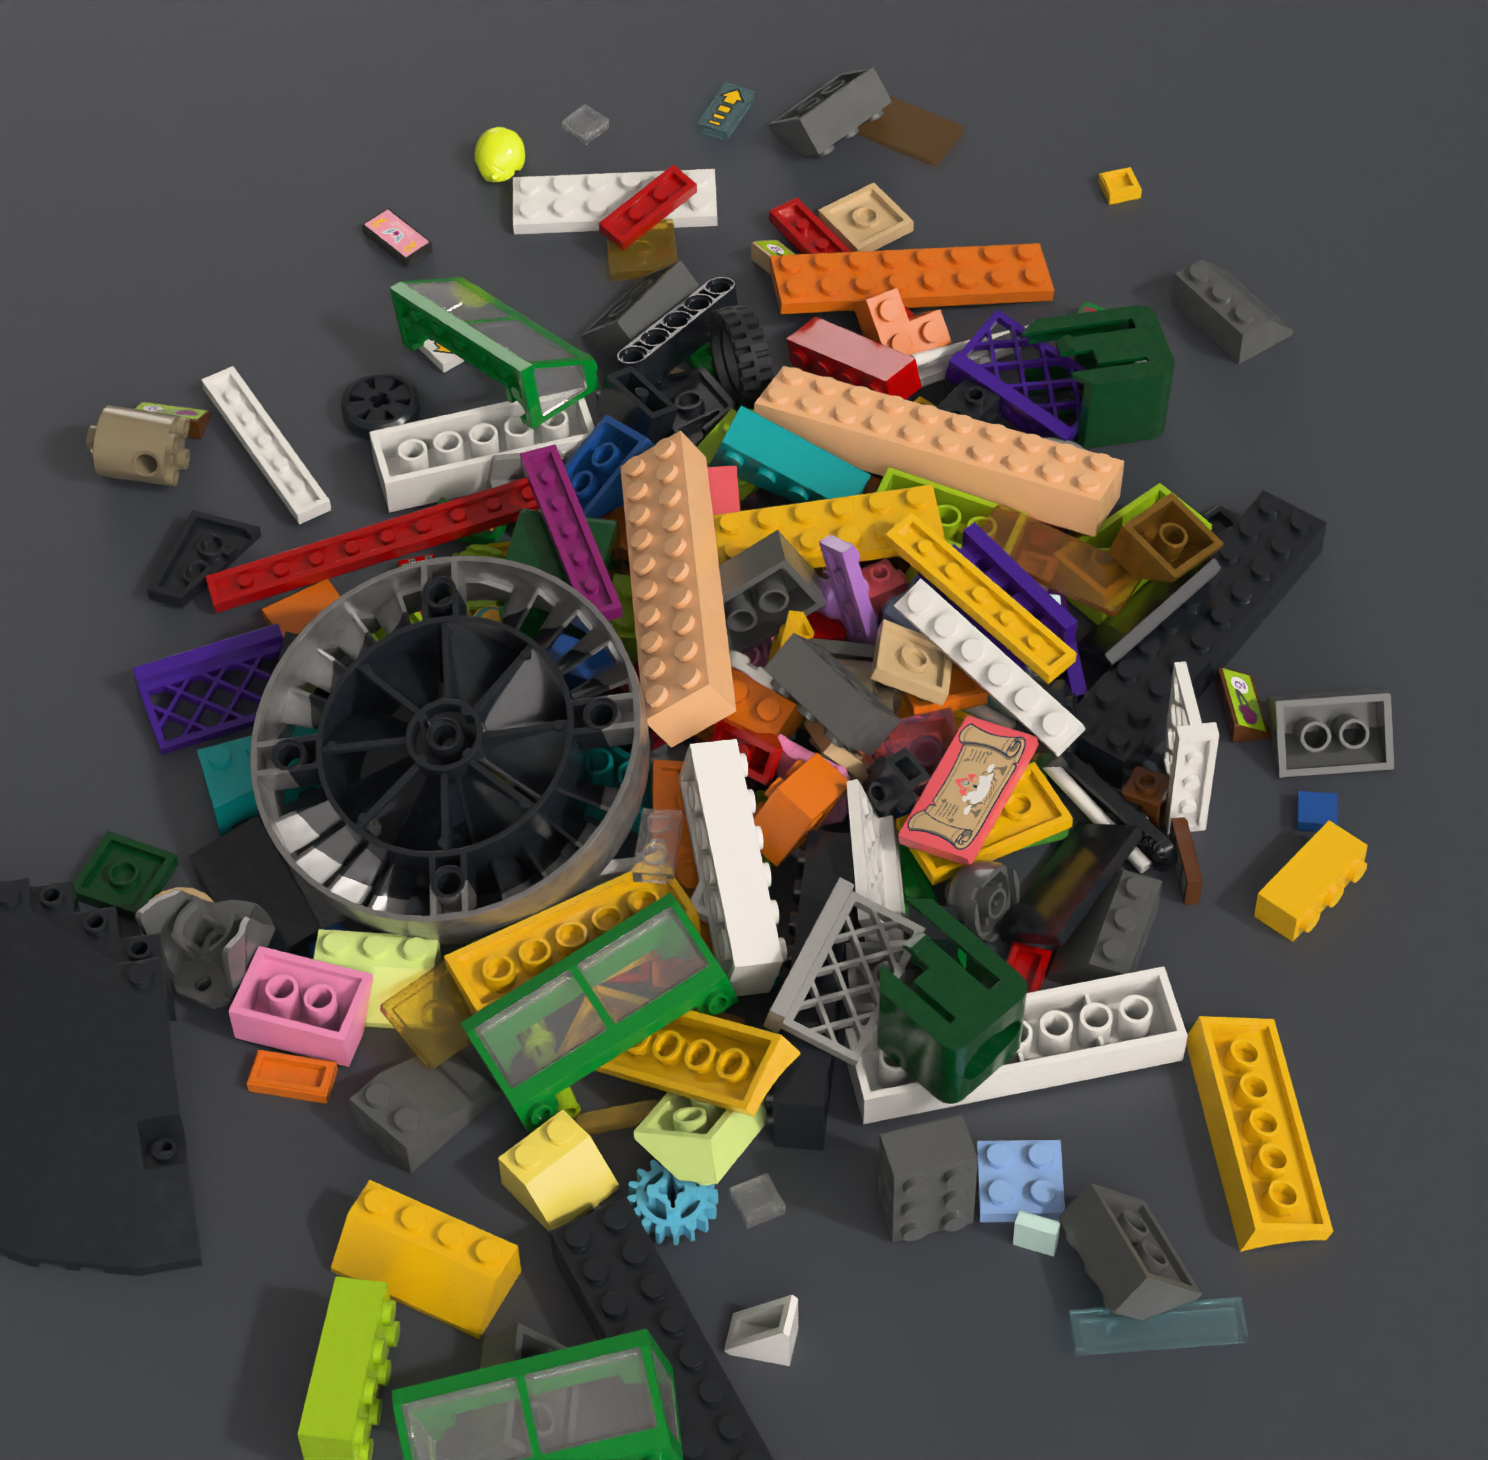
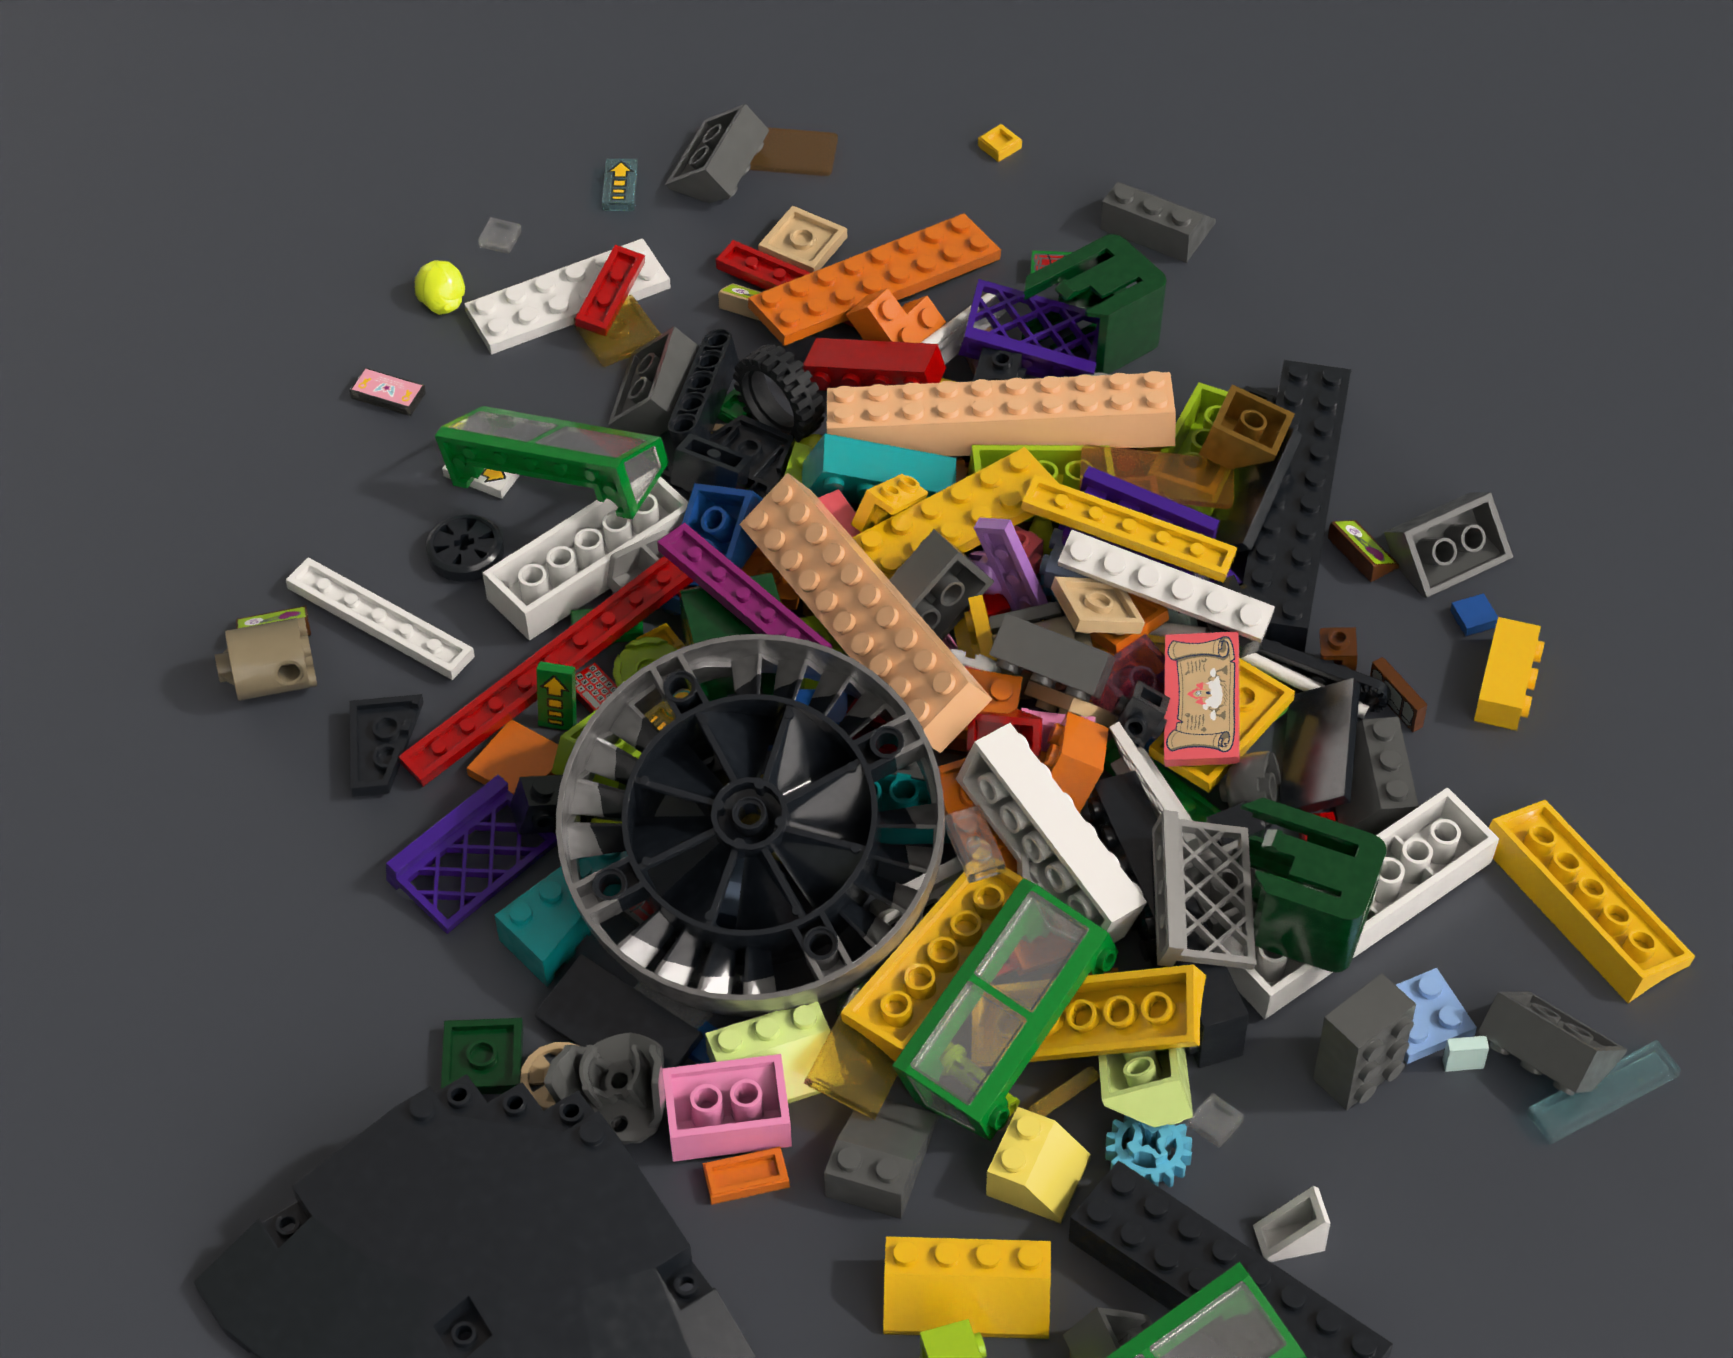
camera: 25 degrees left, 0 degrees up
(371, 558) = (556, 695): none -> green tile
(768, 489) = (887, 500): none -> yellow bracket
(1188, 754) = (1381, 604): white fence -> none

